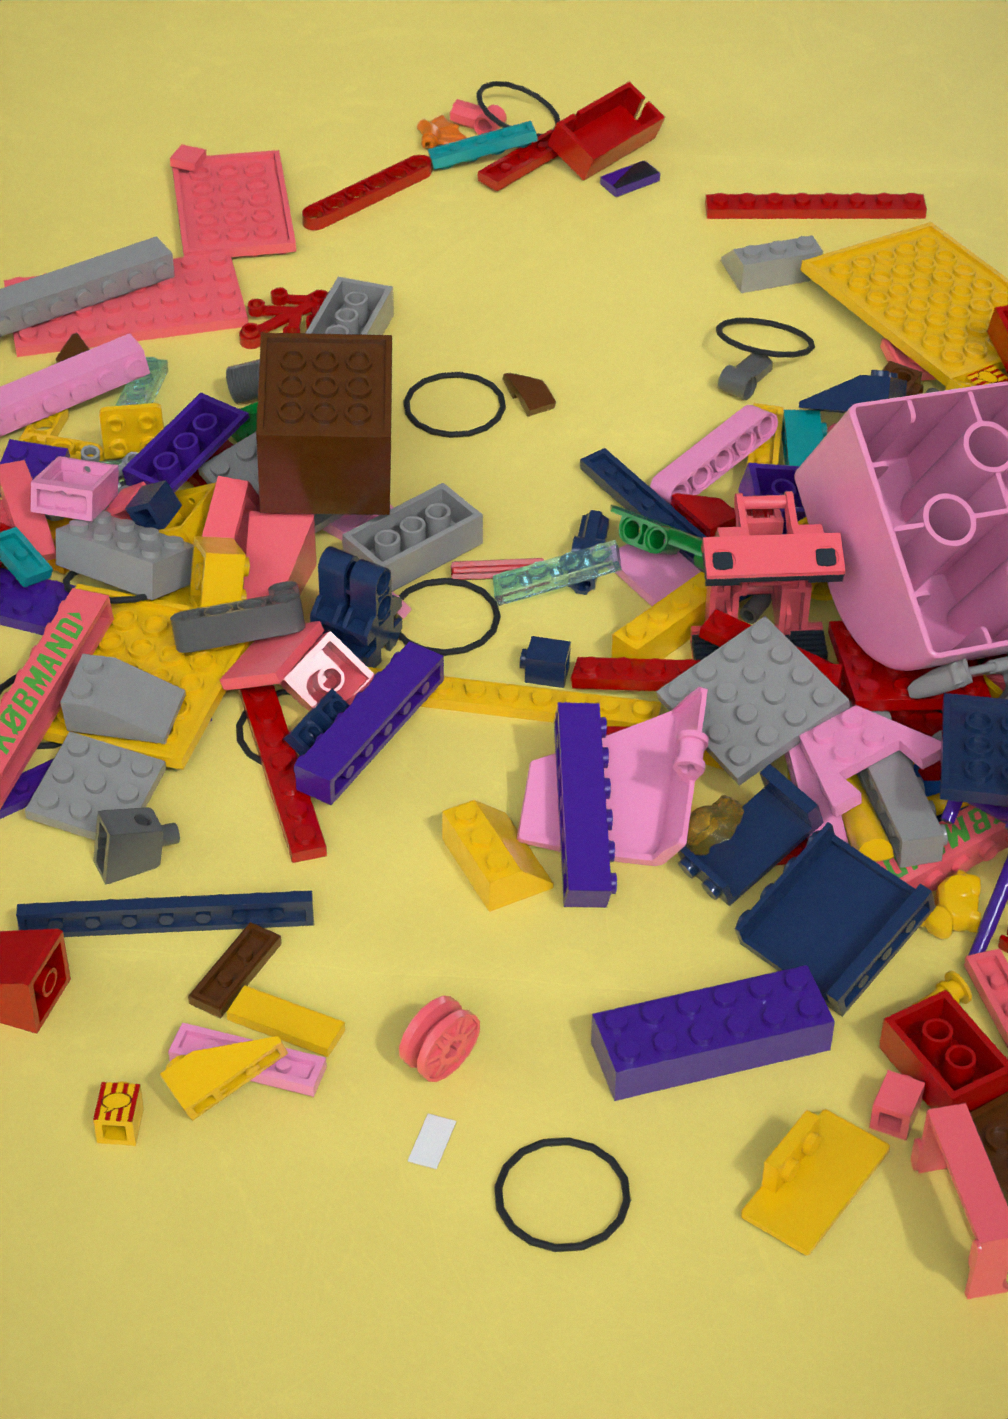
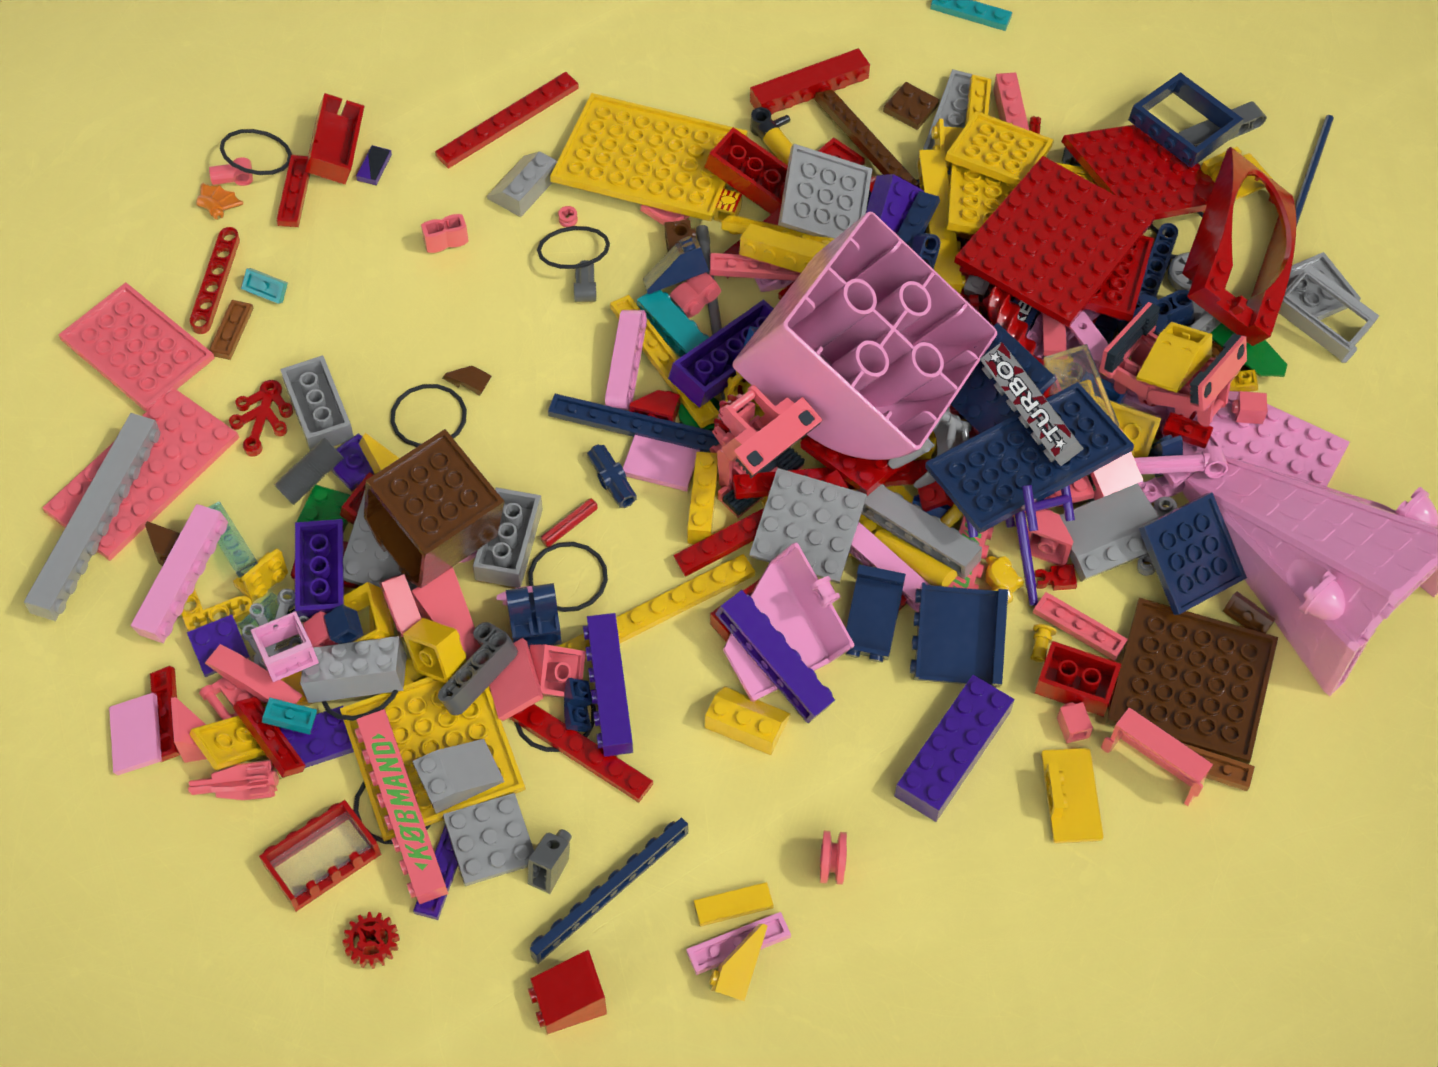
camera: 40 degrees left, 15 degrees up
(118, 1113) = (705, 1027): yellow brick -> none
(188, 158) = (73, 328): coral tile -> none
(234, 970) = (676, 893): reddish brown tile -> none
(338, 237) = (231, 329): none -> dark orange tile
(407, 216) = (264, 285): none -> teal plate
(432, 1141) = (870, 916): white sticker -> none
(492, 143) = (260, 196): teal plate -> none
(546, 661) = (659, 570): dark blue brick -> none
(557, 572) = (613, 505): clear light blue plate -> none
(566, 1246) = (948, 931): black piece -> none
(636, 258) = (444, 233): none -> coral brick
(653, 533) = (697, 437): green panel -> none
(713, 824) = (852, 615): clear yellow hair -> none
(791, 313) = (564, 212): none -> coral bush
(853, 744) = (886, 519): bright pink wing -> none

